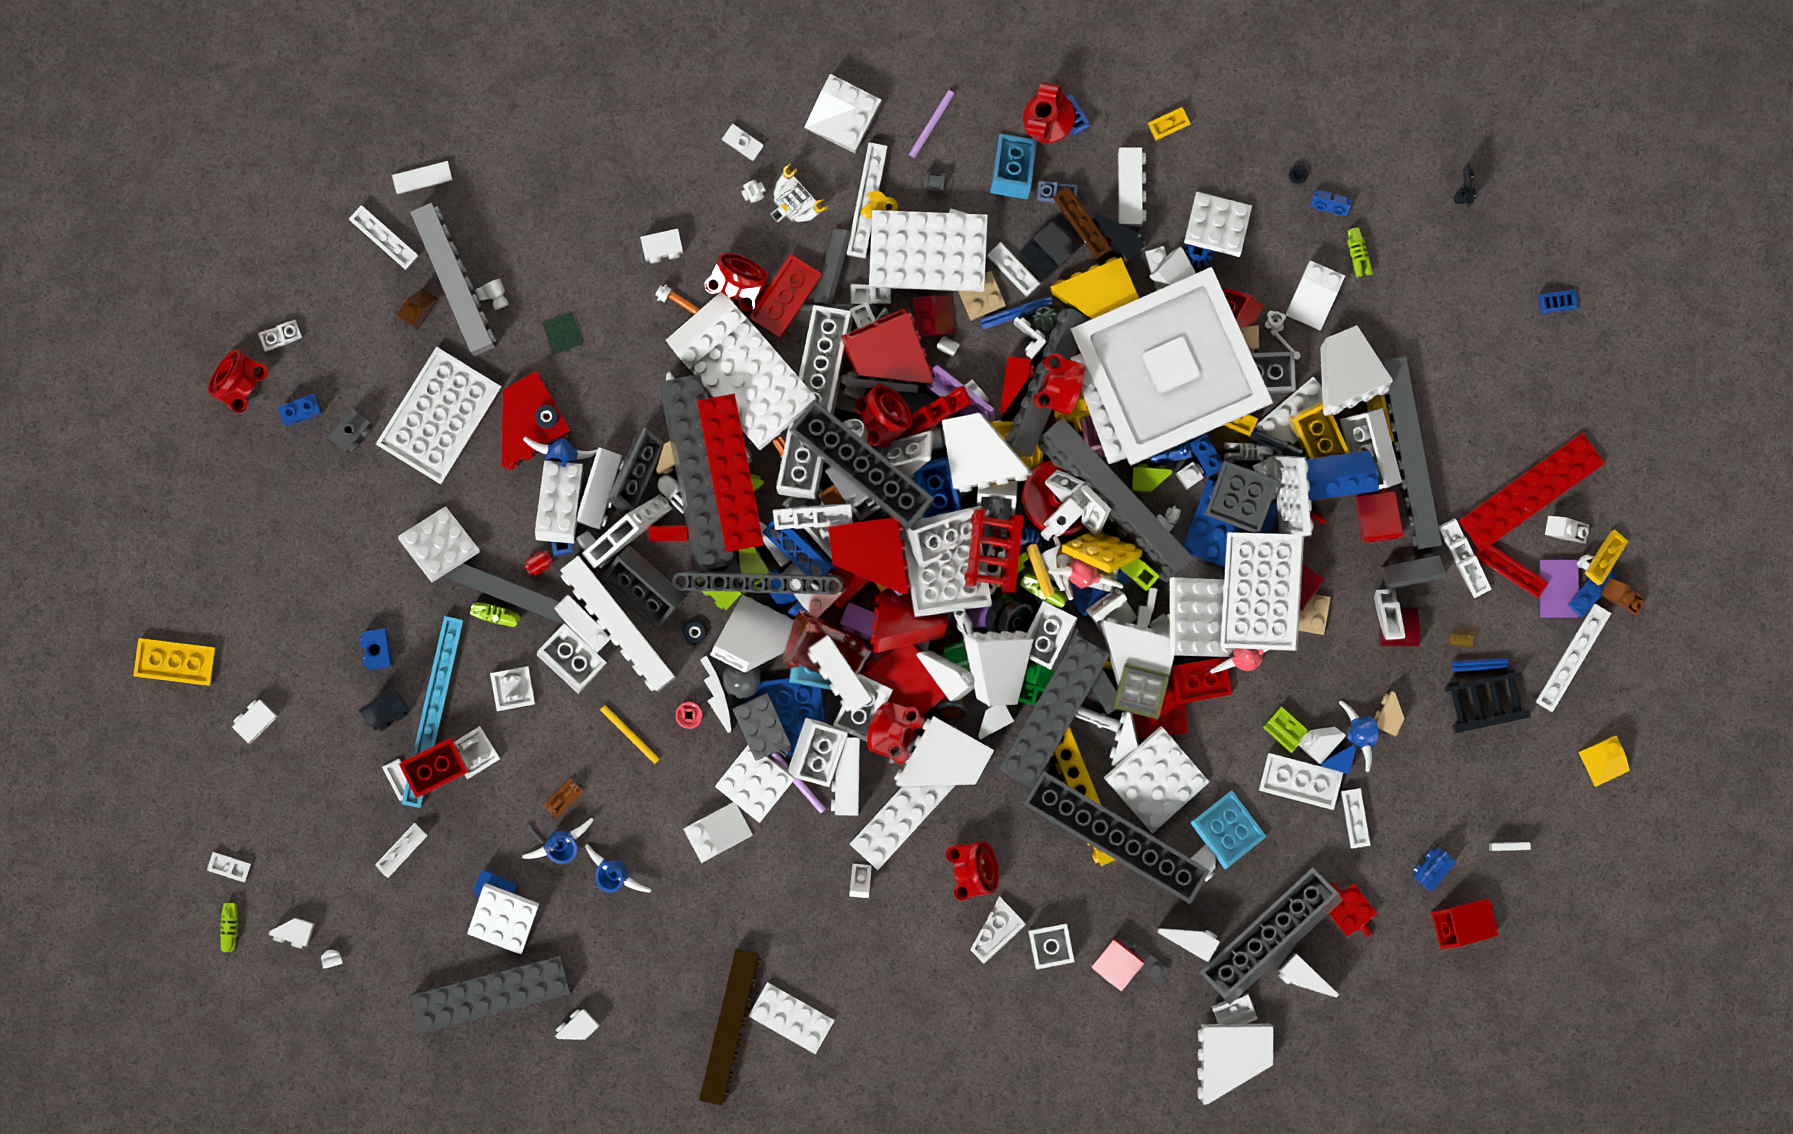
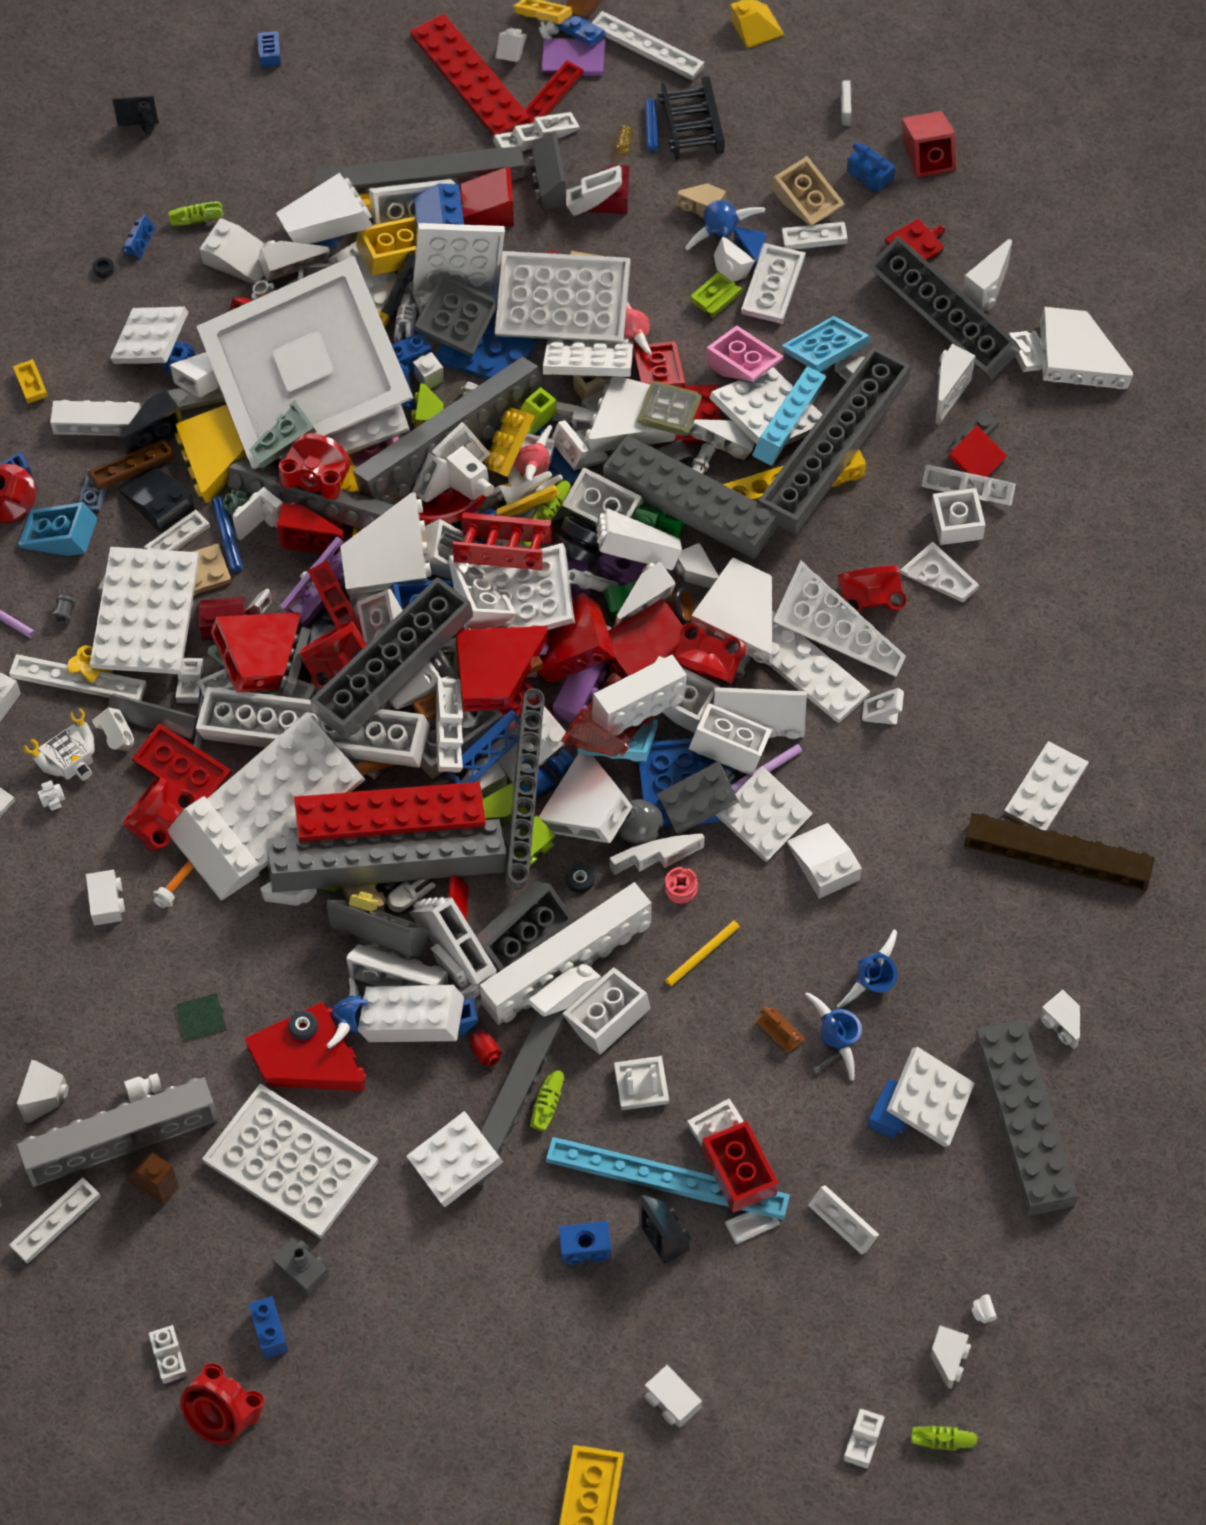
camera: 85 degrees left, 25 degrees down
(488, 215) = (41, 1091): none -> white slope
(604, 529) = (453, 969): none -> white tile
(654, 457) = (364, 901): none -> light yellow plate
(816, 237) = (116, 729): none -> white leg
(940, 832) = (827, 618): none -> white wing
(1087, 955) = (951, 480): none -> white slope
(1095, 355) = (282, 436): none -> sand green wing
(1137, 797) = (789, 415): none -> medium azure brick
(1208, 755) = (741, 356): none -> bright pink slope
(1303, 342) = (284, 257): none -> white slope
(1398, 811) = (806, 192): none -> tan slope

